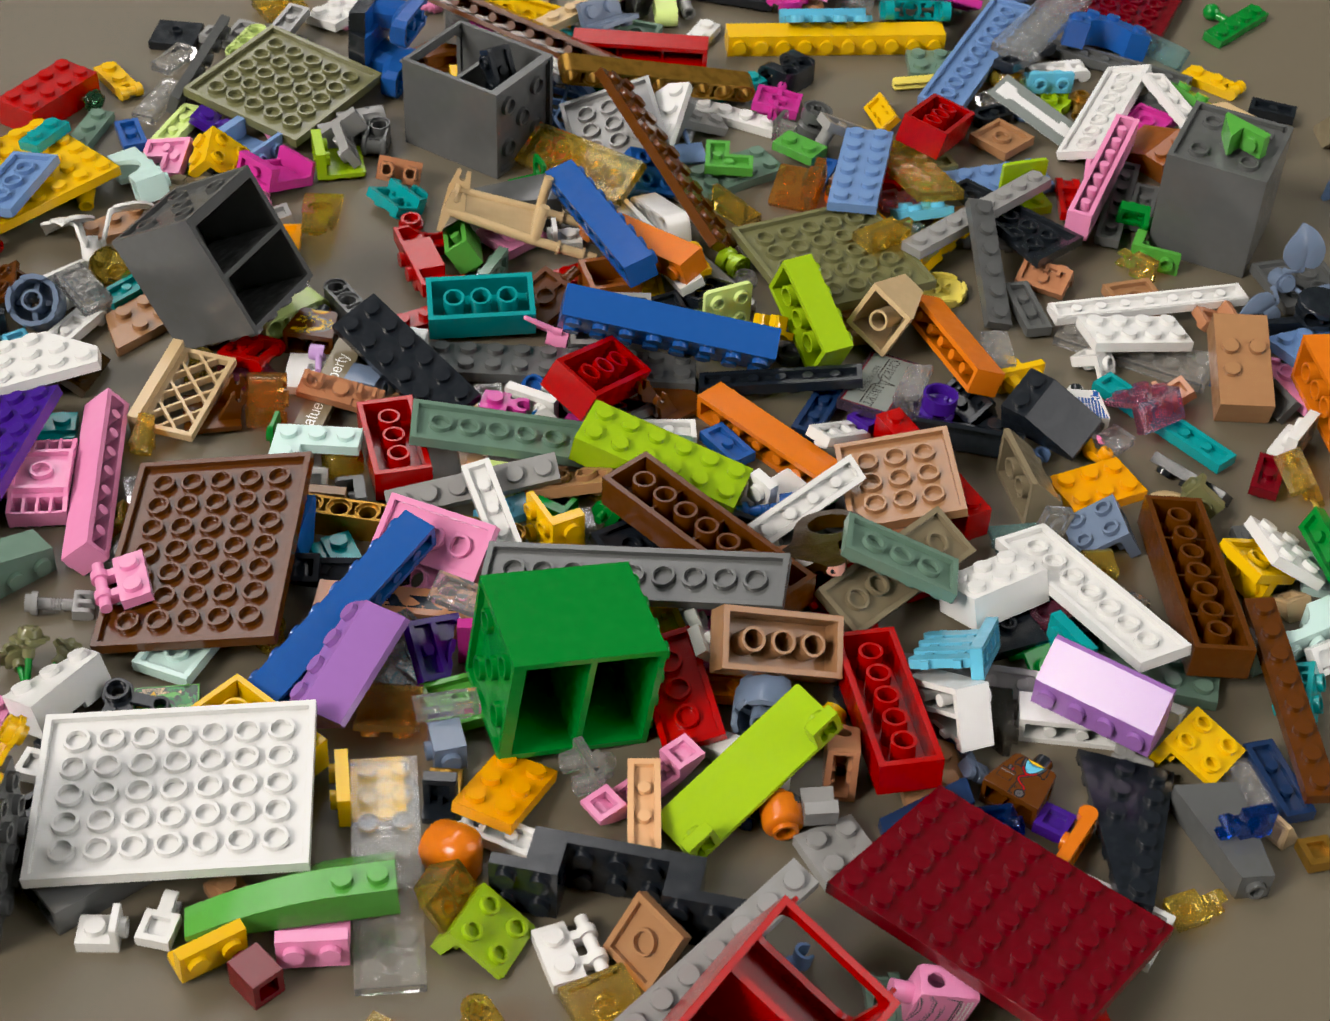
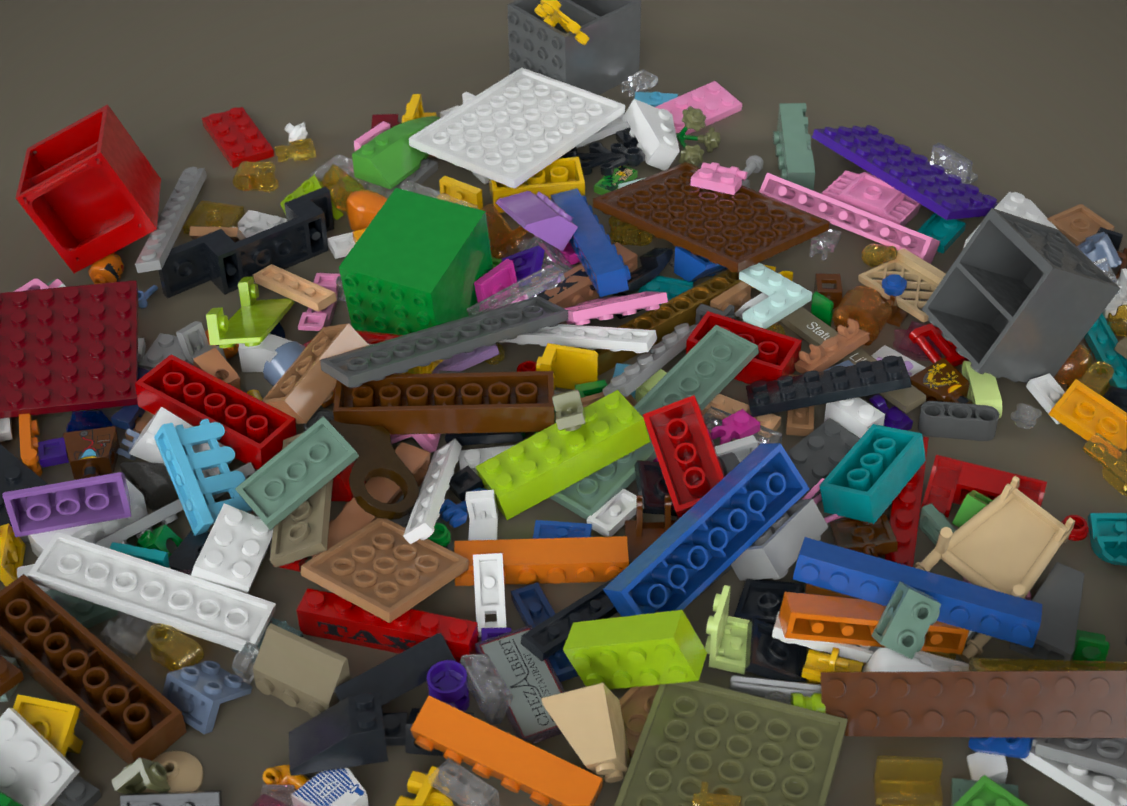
camera: 135 degrees right, 0 degrees up
(202, 392) = (894, 285): none -> blue plate
(236, 442) = (833, 294): none -> reddish brown brick
(640, 203) = (906, 620): none -> sand green brick
(644, 435) = (569, 410): none -> bracket
(1096, 481) = (250, 742): light orange plate -> none

